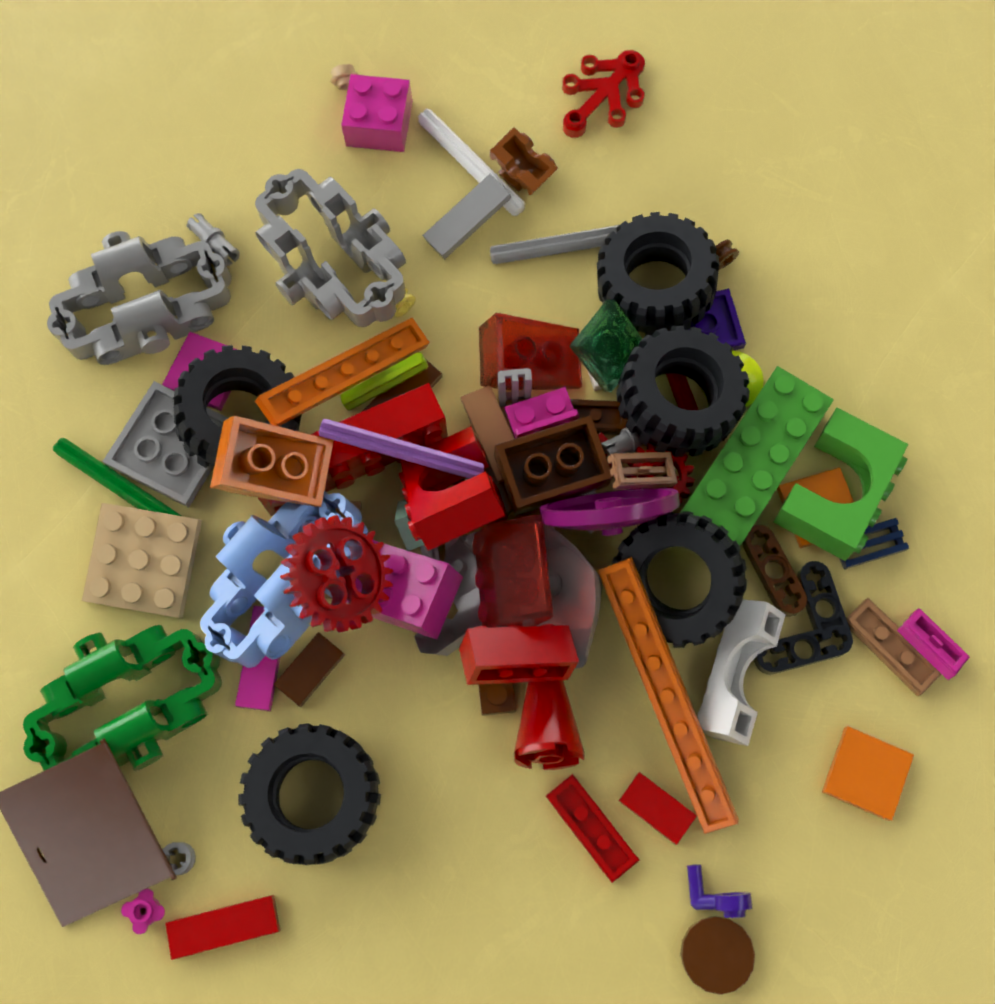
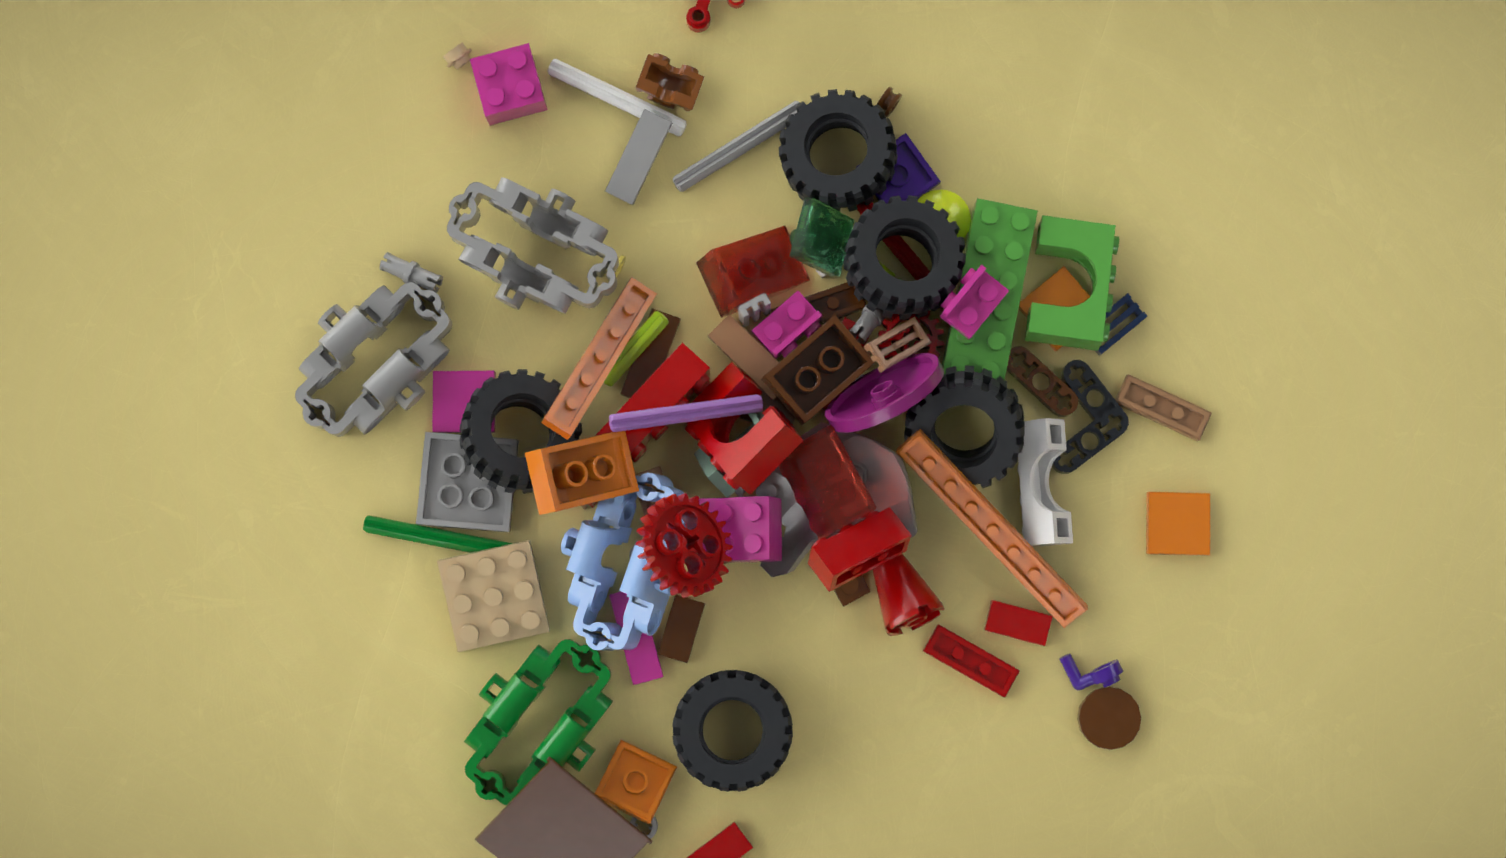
camera: 25 degrees left, 10 degrees up
(189, 807) = (635, 782): none -> orange tile
(735, 457) = (973, 302): none -> dark pink bracket
(933, 644) = (1194, 395): dark pink tile -> none

